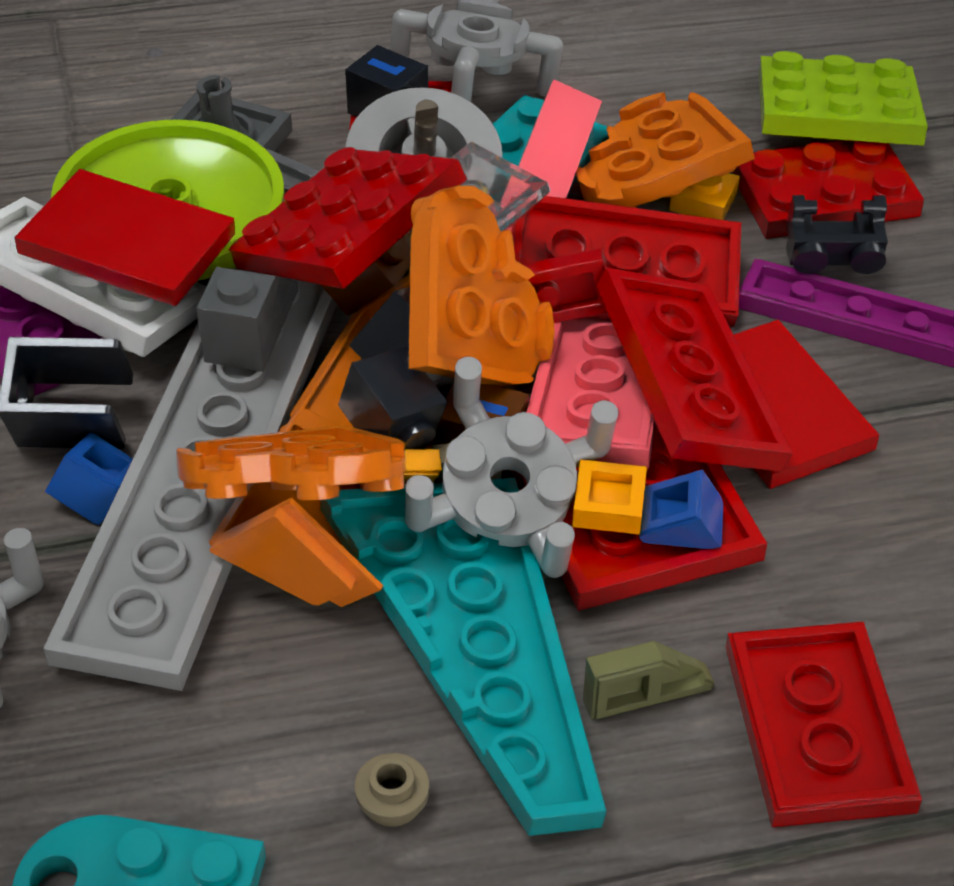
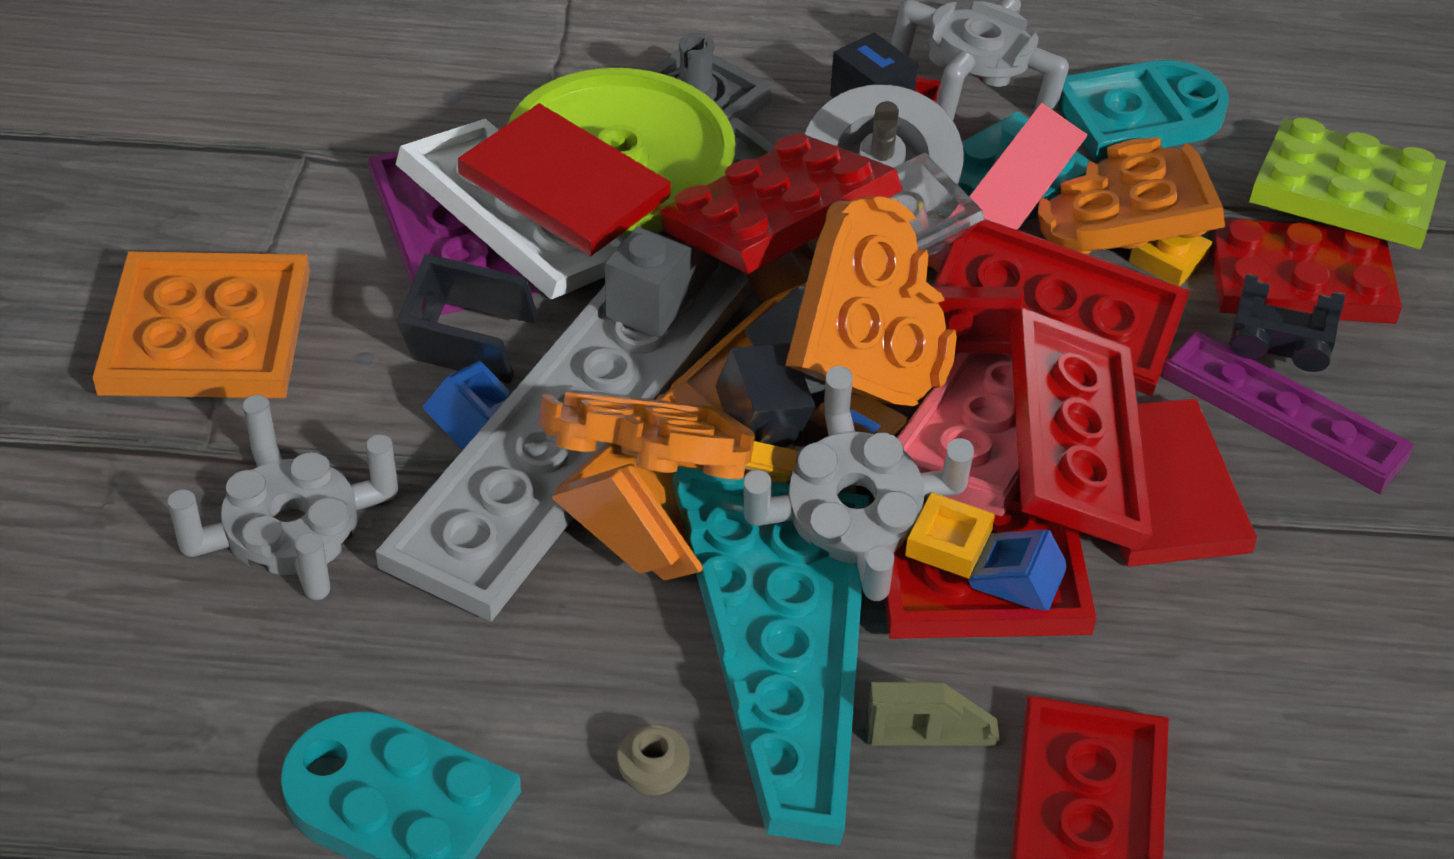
camera: 15 degrees right, 0 degrees up
(637, 65) = (1144, 103): none -> teal plate

